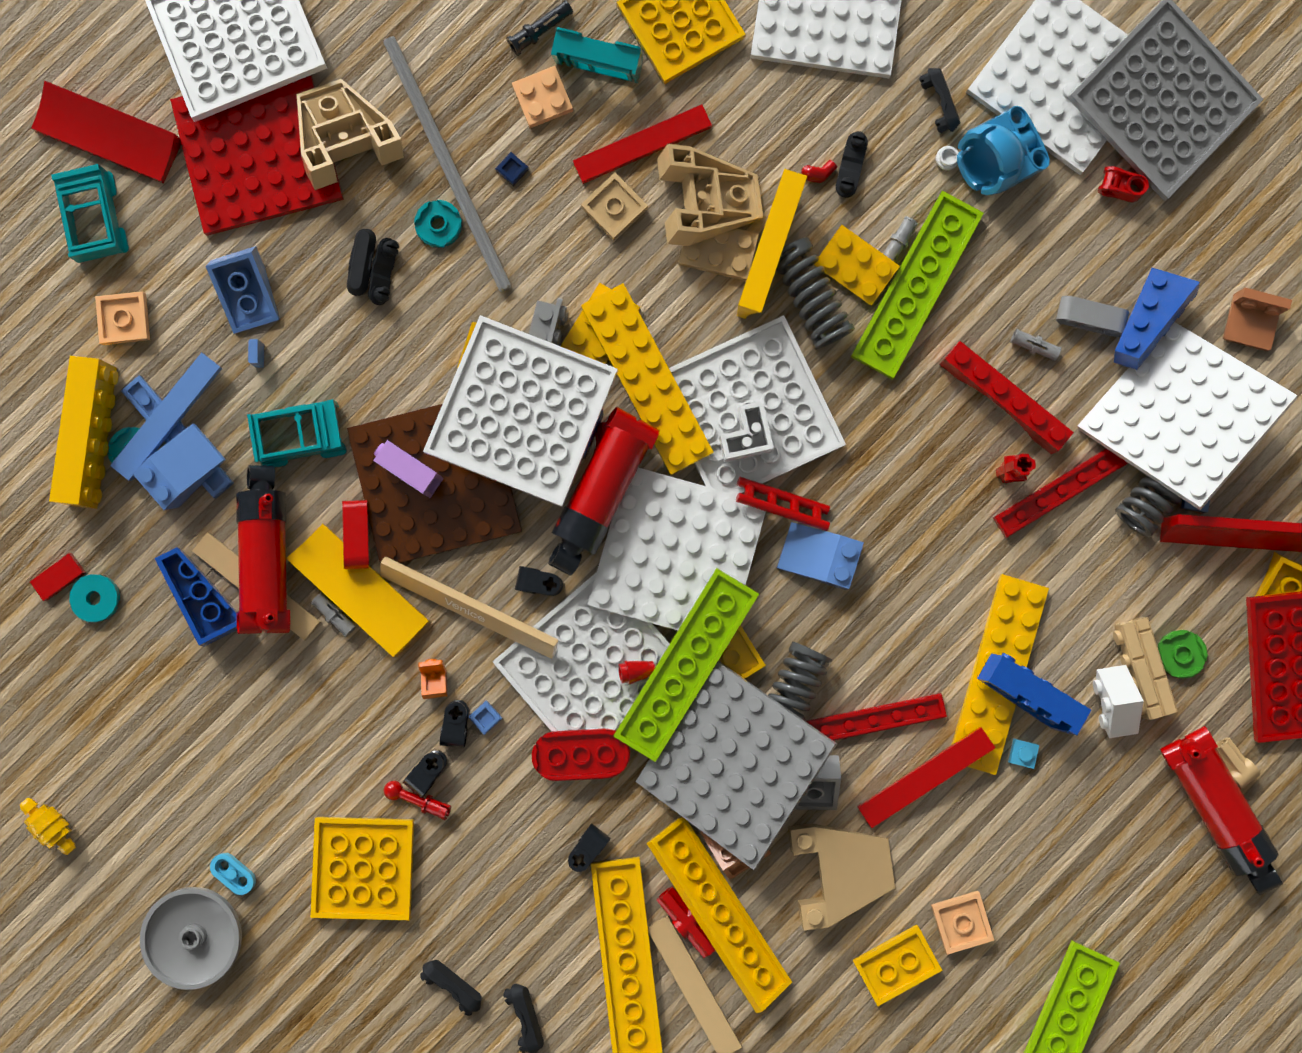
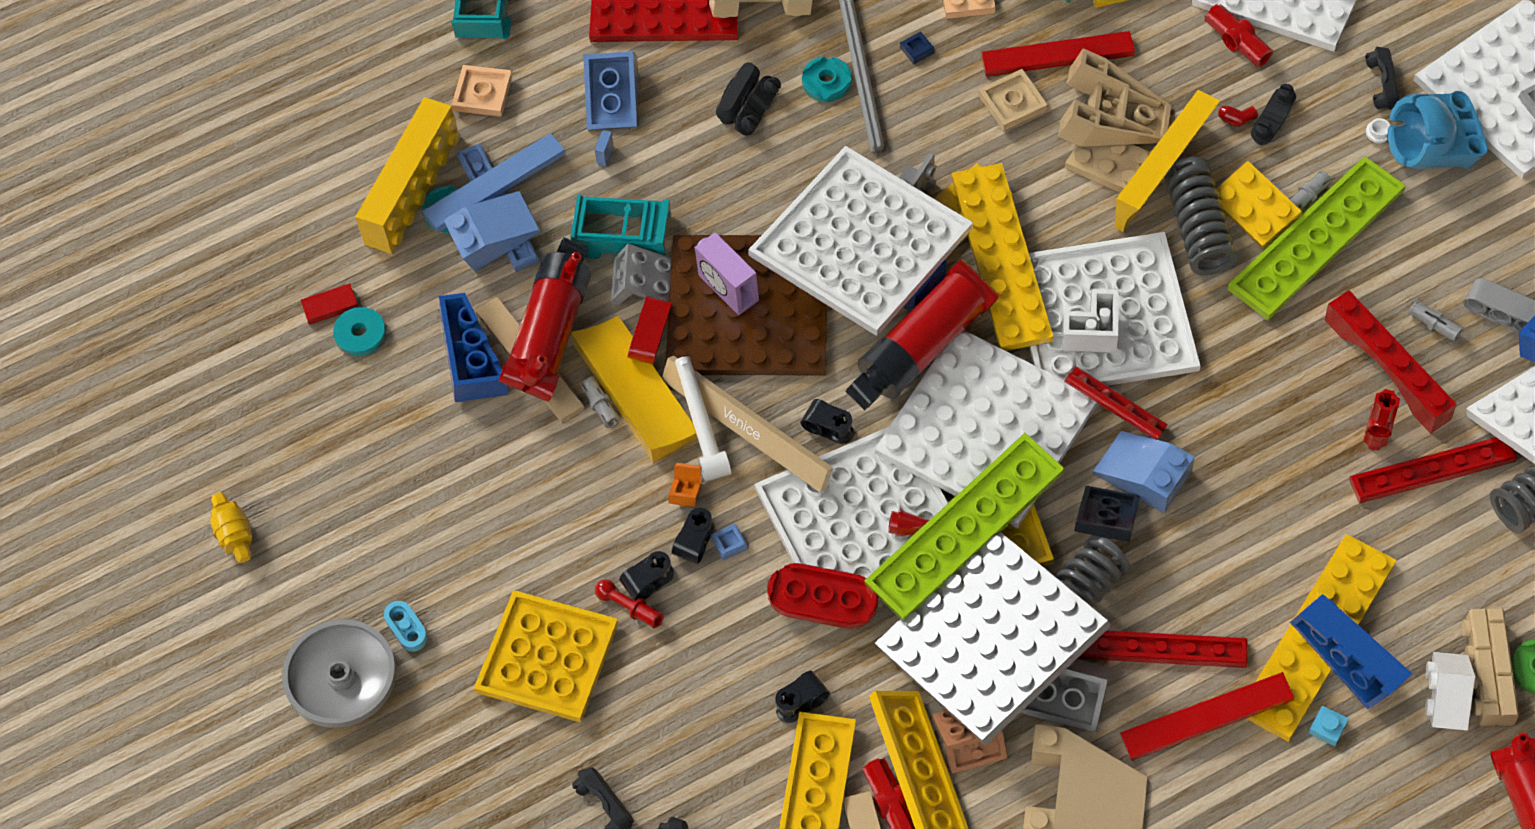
camera: 20 degrees right, 25 degrees down
(331, 478) = (641, 274): none -> light grey bracket
(450, 648) = (713, 463): none -> white piece
(801, 85) = (1238, 35): none -> red piece
(802, 615) = (1107, 513): none -> black tile

